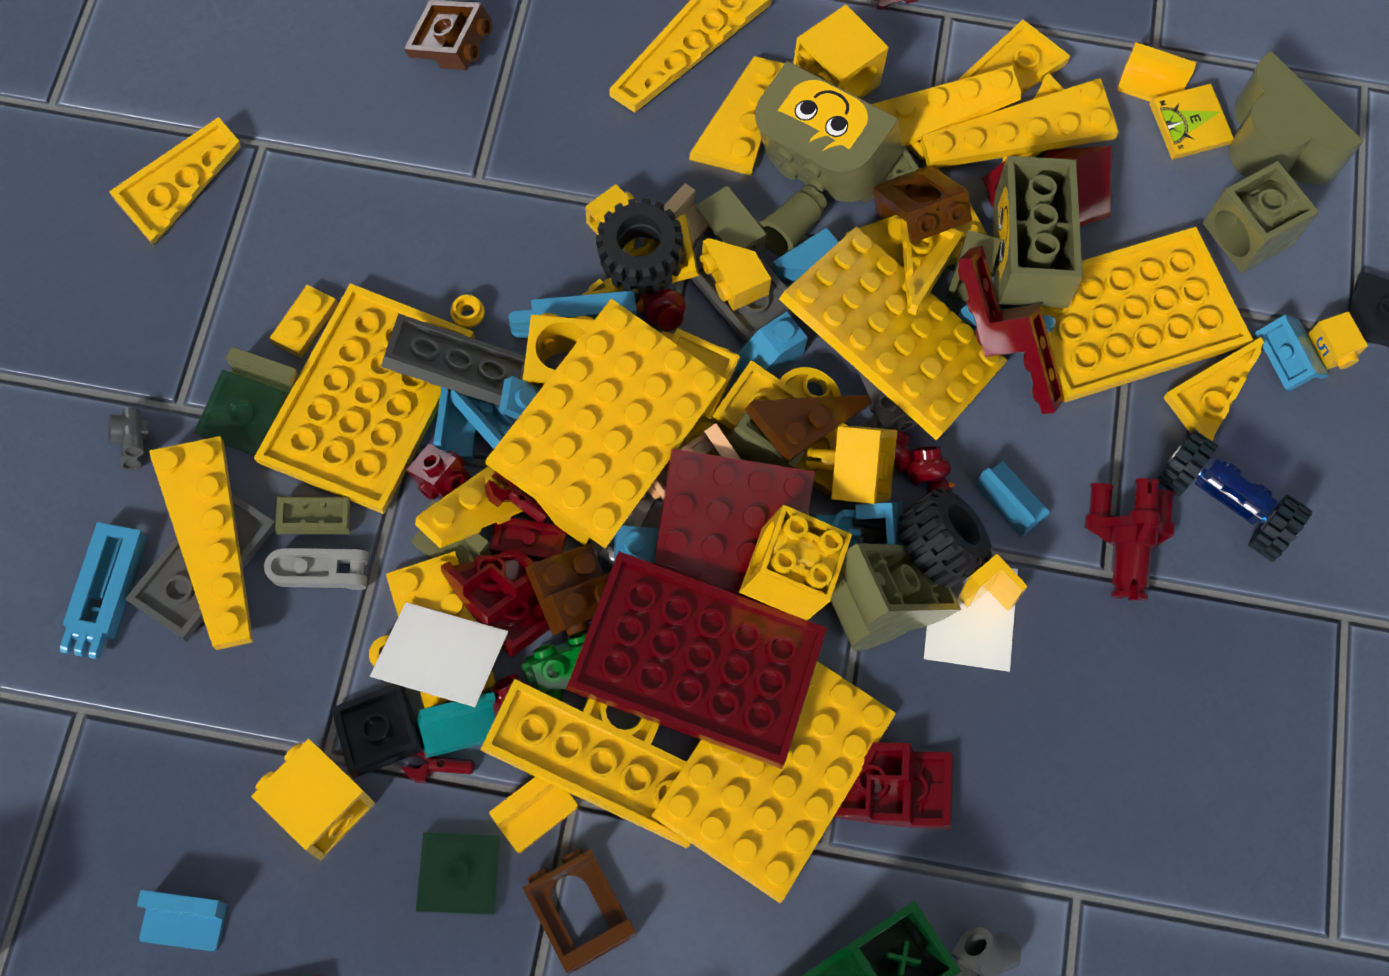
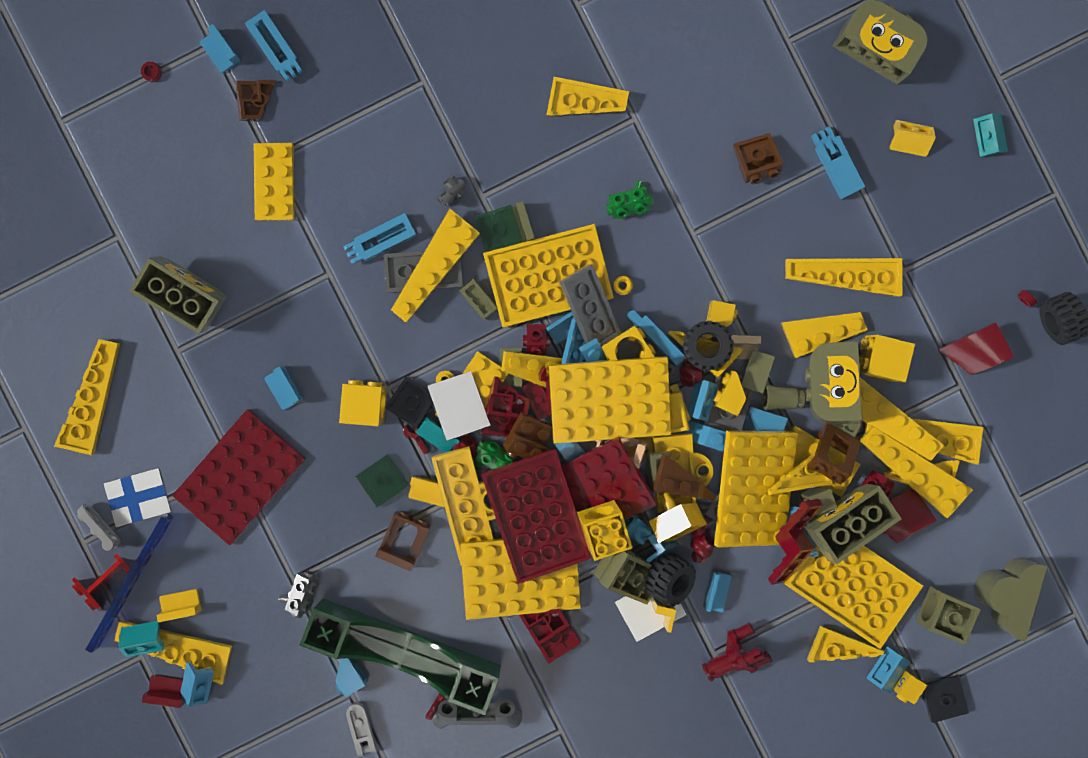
camera: 55 degrees right, 20 degrees up
(303, 321) = (562, 216): yellow plate -> none
(317, 568) = (457, 320): light grey plate -> none
(363, 219) = (630, 202): none -> green brick
(712, 317) = (702, 400): none -> dark azure panel
(1154, 73) = (998, 512): yellow panel -> none
(1191, 121) = (985, 545): yellow tile -> none
(1248, 500) = (789, 717): plate -> none

